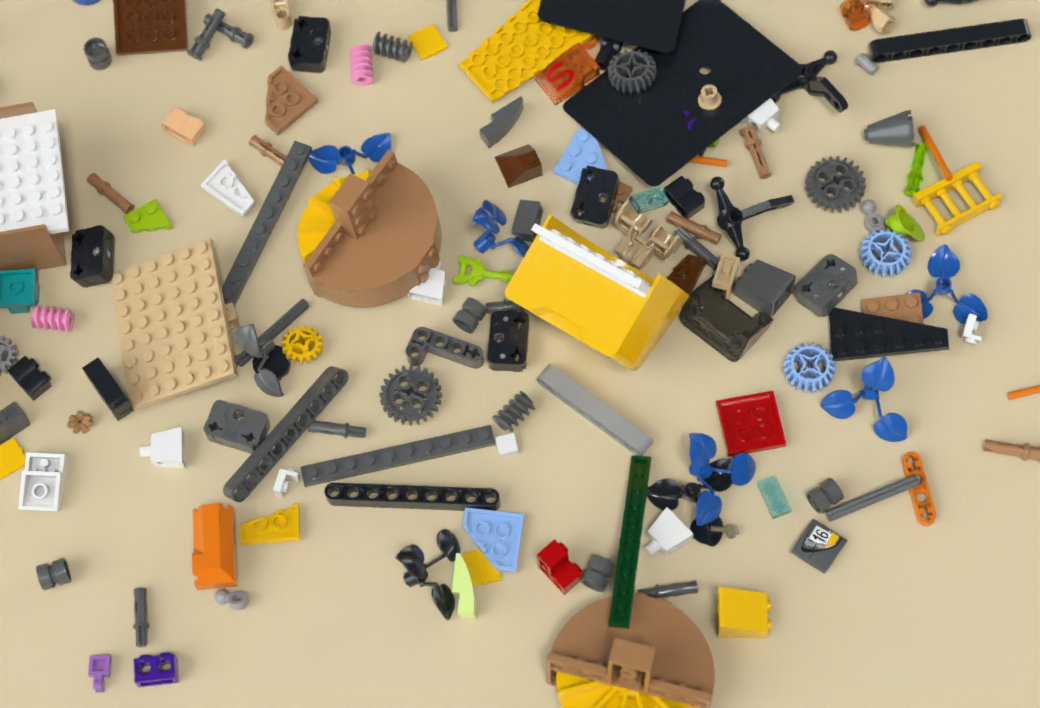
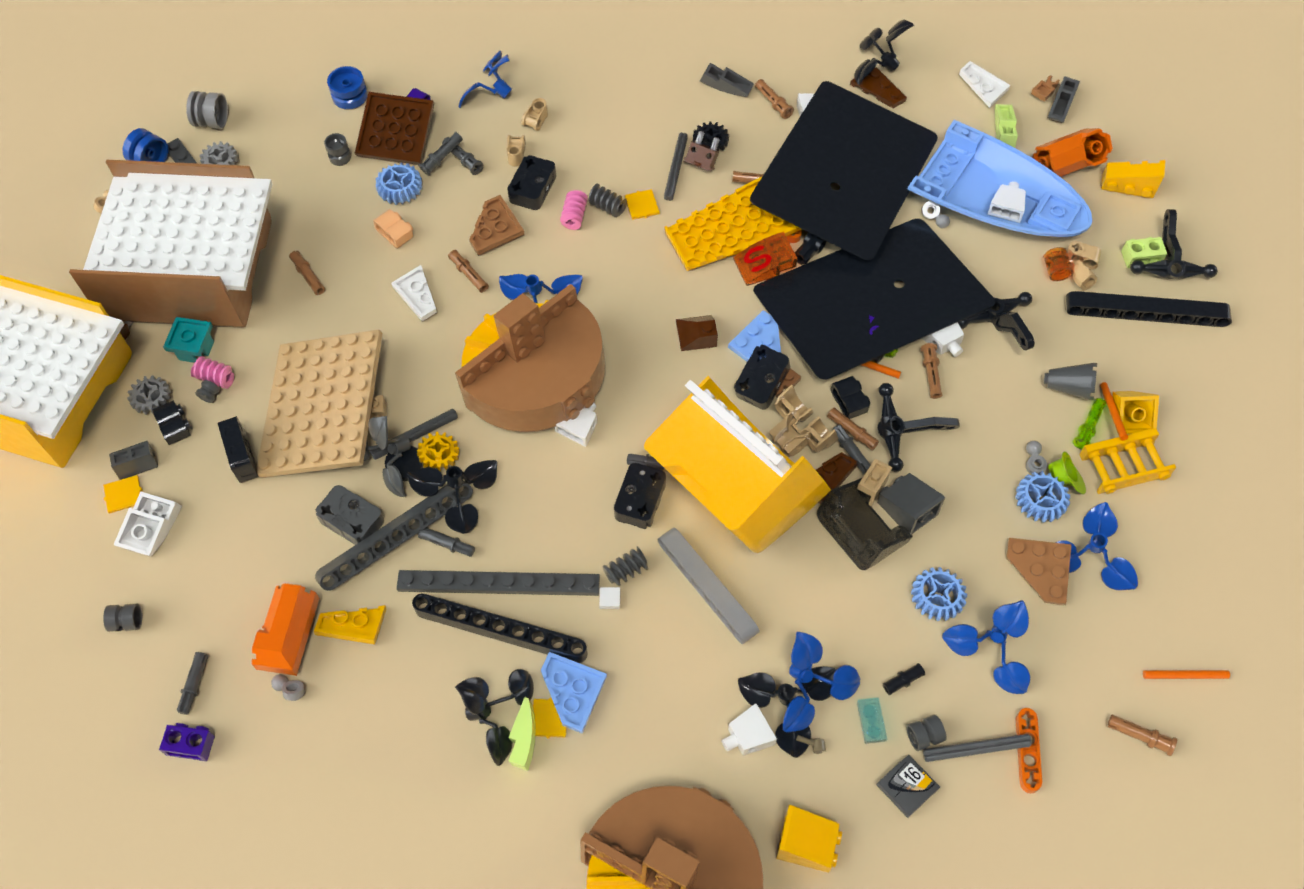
camera: 10 degrees right, 5 degrees down
(54, 338) = (207, 391): none -> dark grey wheel
(80, 422) = (202, 475): medium nougat plant -> none
(92, 256) = (268, 324): black axle -> none
(98, 669) = (131, 726): medium lavender plate -> none
(147, 218) = (333, 302): lime wing -> none
(166, 448) = (275, 520): white torso -> none
(171, 83) = (398, 183): none -> light blue gear
(265, 222) = (438, 331): dark grey plate -> none
(282, 483) = (375, 581): white bracket -> none
(349, 356) = (460, 518): none -> black plant
(405, 410) = (519, 539): dark grey gear -> none
(445, 351) = (575, 490): dark grey beam -> none
(471, 313) = (607, 462): dark grey wheel -> none
(478, 272) = (628, 423): lime piece -> none
(488, 218) = (647, 370): blue plant -> none
(501, 122) = (691, 289): dark grey slope -> none
(527, 215) = (693, 373): dark grey hinge -> none
(556, 566) = (624, 734): red brick -> none
(599, 570) = (666, 756): dark grey wheel -> none
(630, 542) = (705, 735): dark green plate -> none
(632, 71) = (828, 269): dark grey gear -> none
(649, 200) = (814, 392): clear light blue plate -> none
(671, 590) = (737, 793): dark grey axle -> none
(709, 98) = (897, 309): tan piece -> none
(750, 423) = (865, 637): red plate -> none
(794, 453) = (903, 679): none -> black pin
(826, 285) = (975, 515): dark grey axle -> none
(835, 184) = (1005, 418): dark grey gear -> none
(867, 64) = (1060, 312): light grey pin -> none
(870, 336) = (1010, 577): black wing -> none
(957, 147) = (1137, 410): none -> yellow slope
(971, 326) = (1117, 591): white bracket -> none

